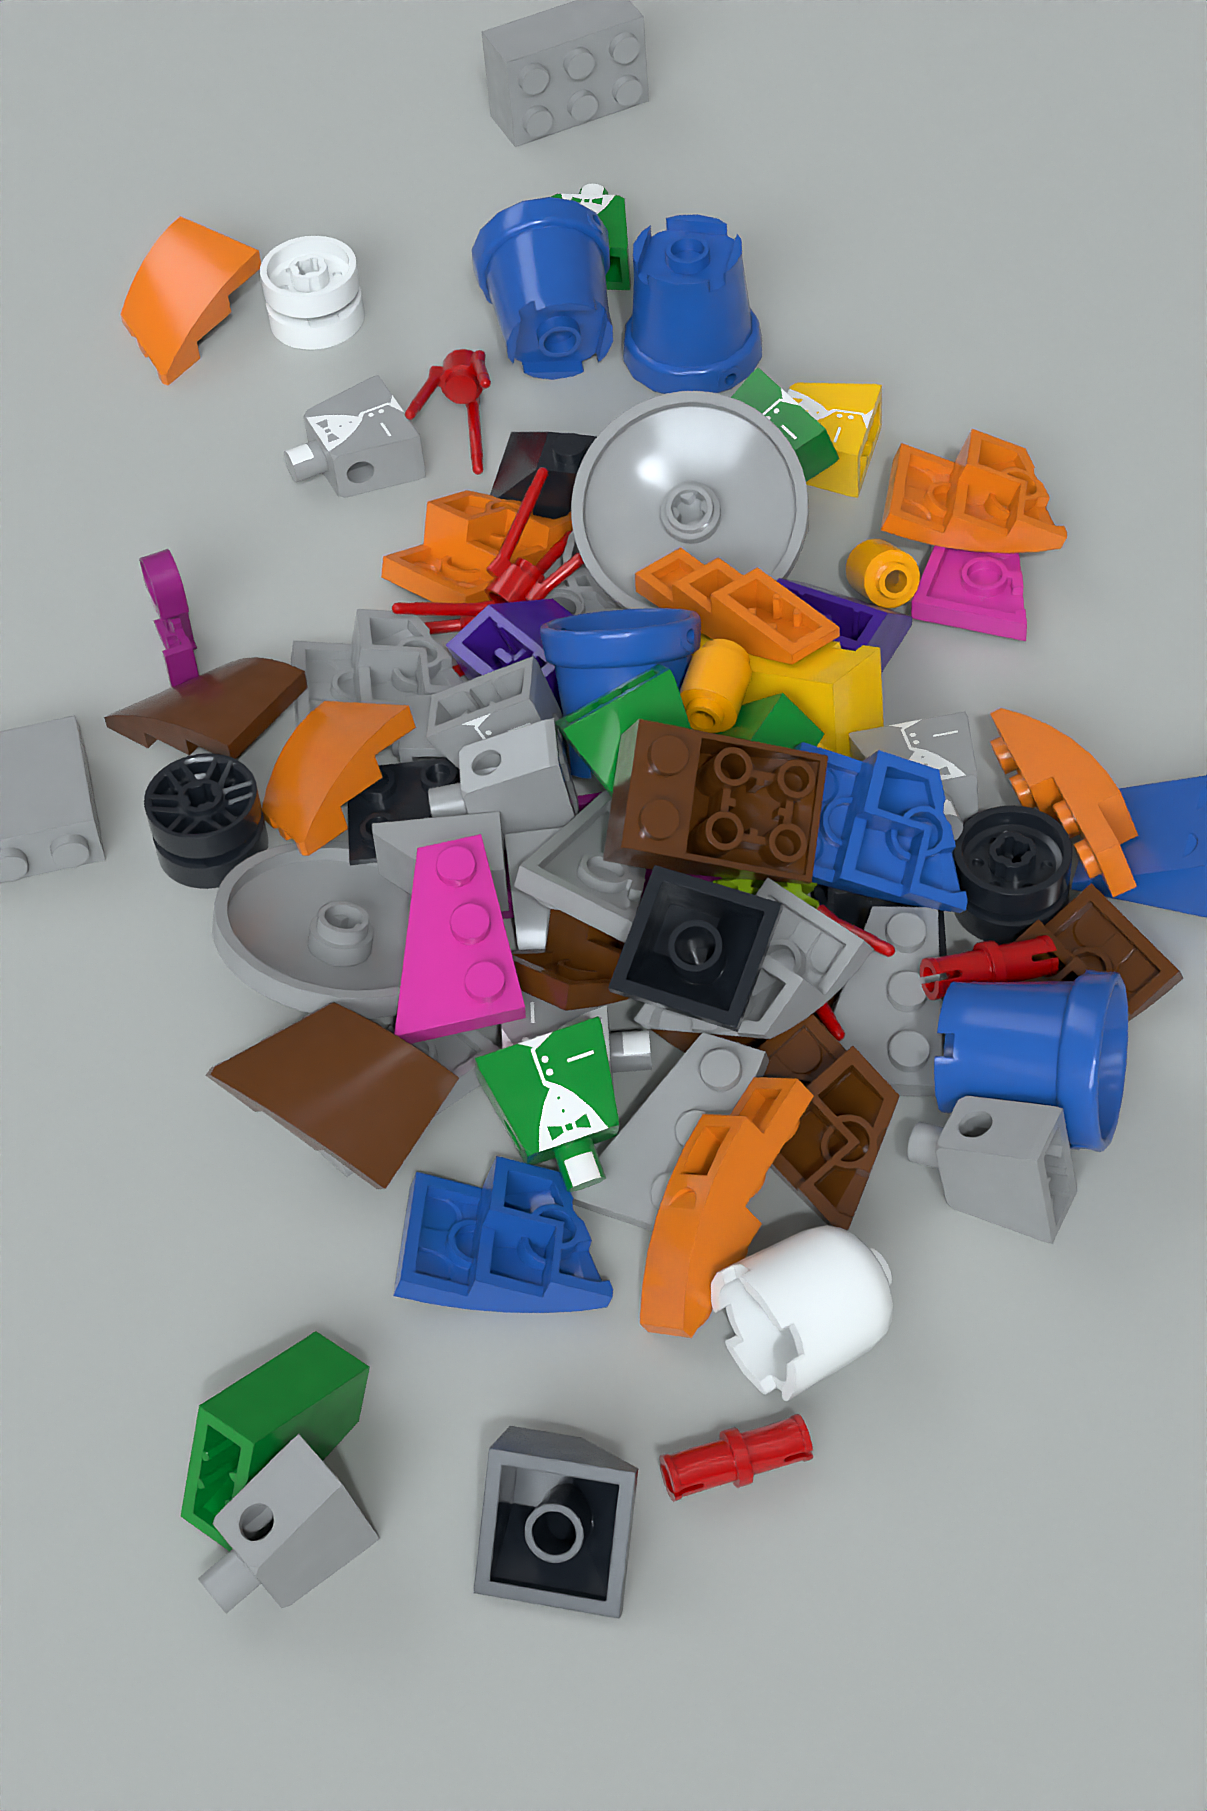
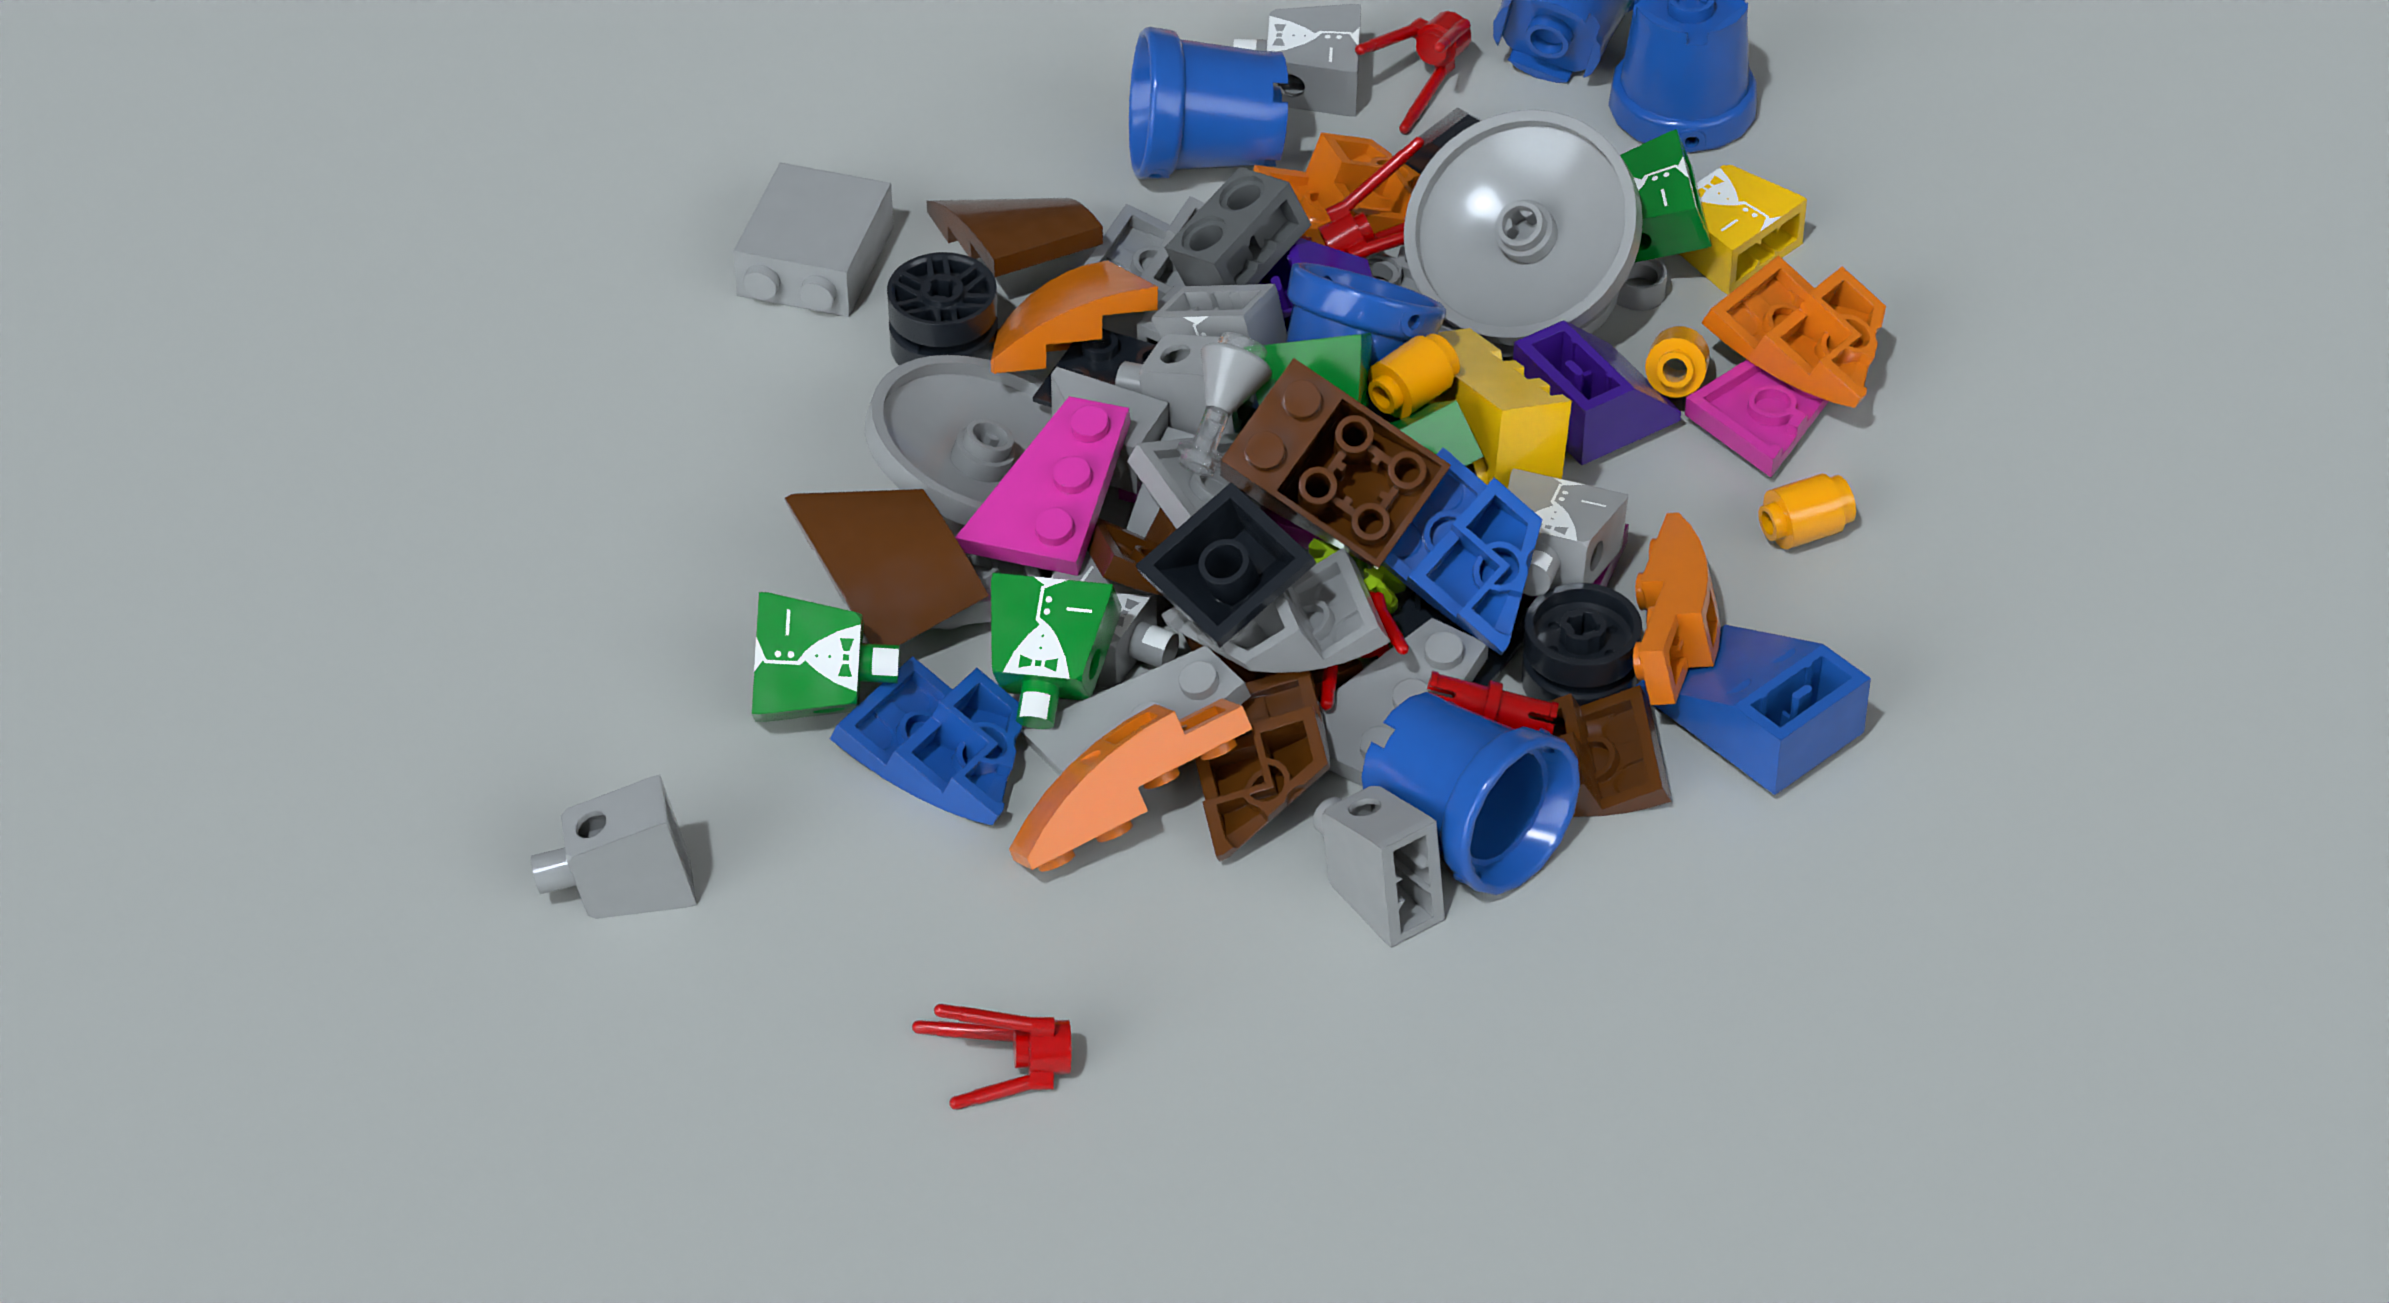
camera: 25 degrees right, 5 degrees down
(174, 625) = (1035, 123): magenta piece -> none
(302, 1391) = (703, 769): green slope -> none
(309, 522) = (1203, 105): none -> blue piece
(336, 1226) = (813, 659): none -> green torso
(445, 624) = (1239, 231): none -> dark grey brick
(555, 1523) = (822, 943): black slope -> none
(574, 761) = (1231, 375): none -> piece
(736, 1457) = (1004, 971): red pin -> none
(737, 607) = (1493, 321): orange slope -> none
(804, 1308) = (1136, 884): white cylinder -> none
(825, 1522) = (1038, 1045): none -> red plant
(1088, 656) = (1807, 510): none -> light orange brick

